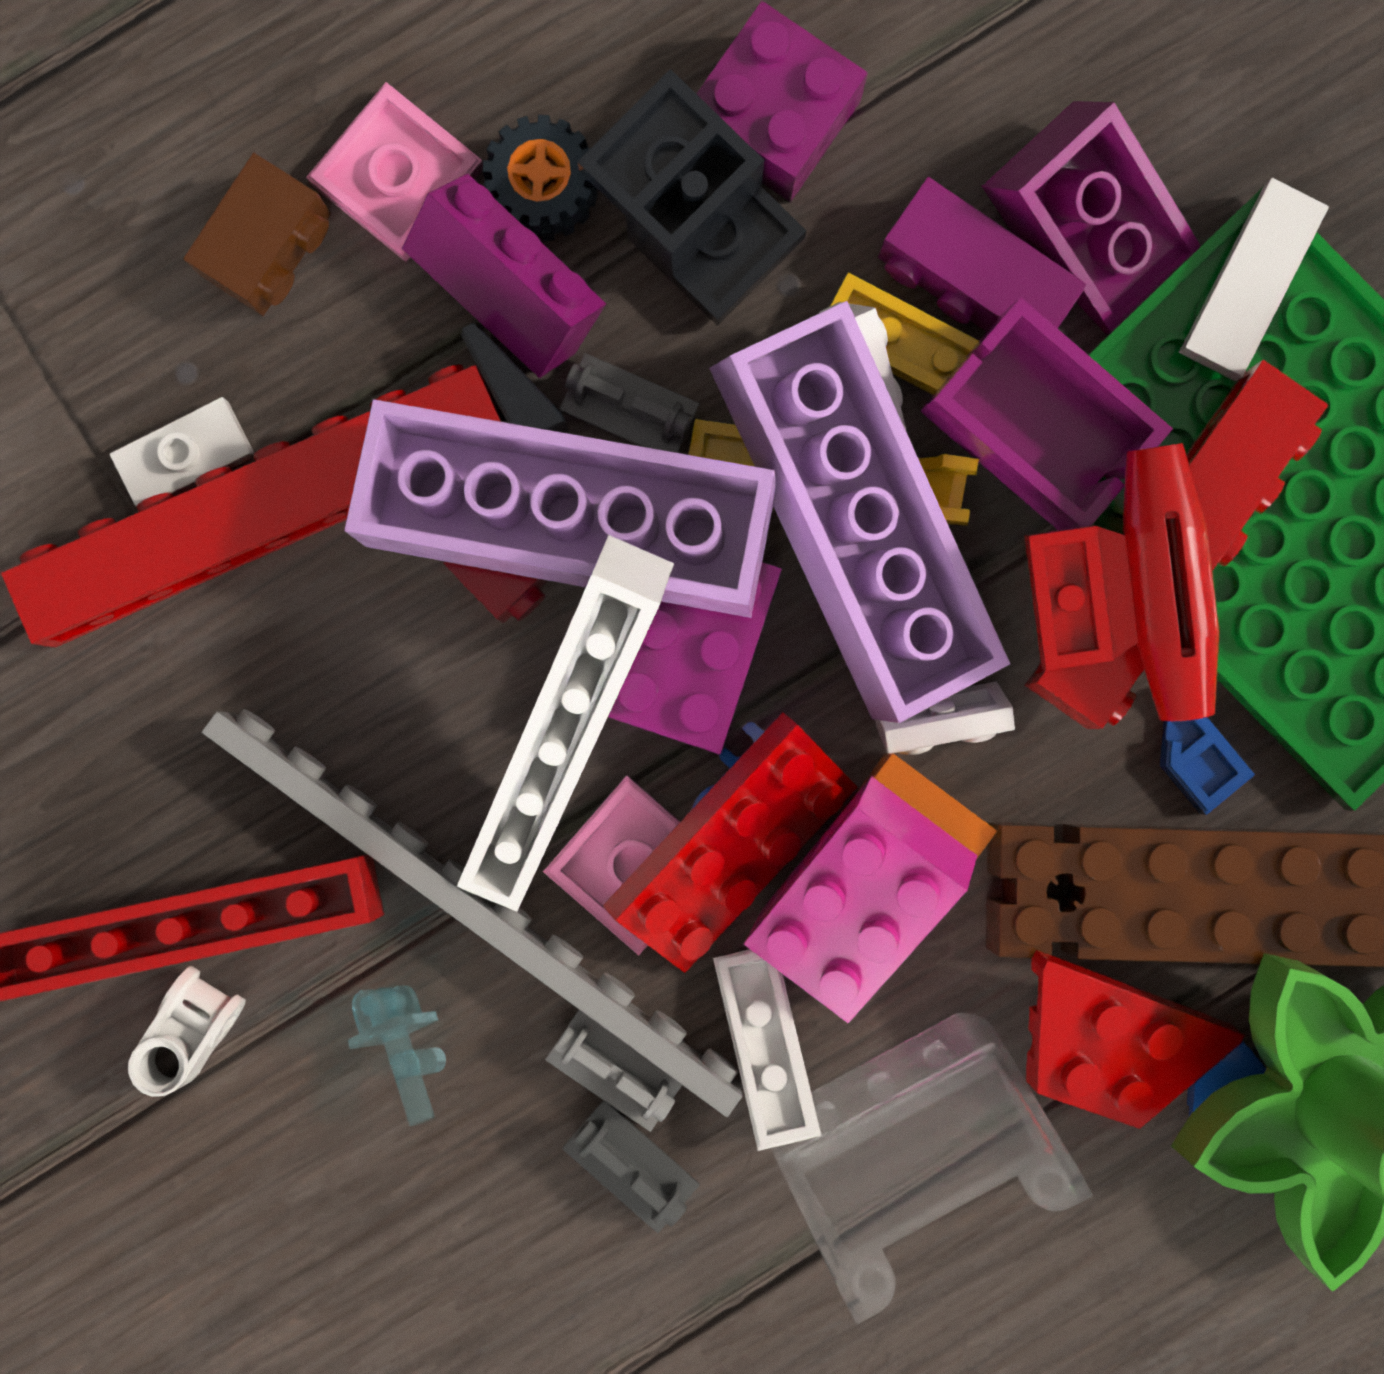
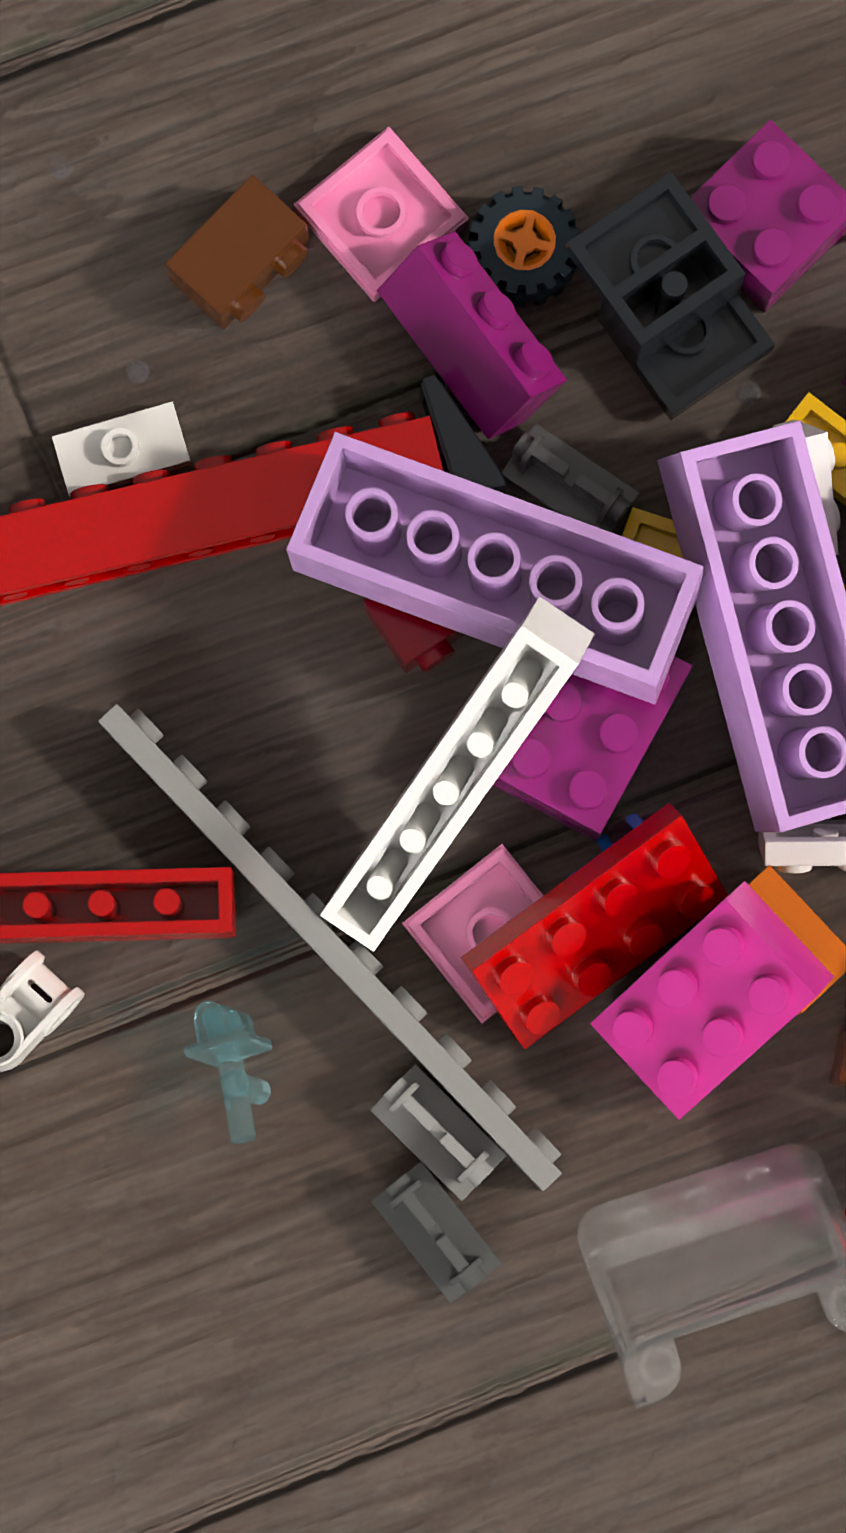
camera: 10 degrees right, 5 degrees down
(766, 1050) = (593, 1137): white tile -> none

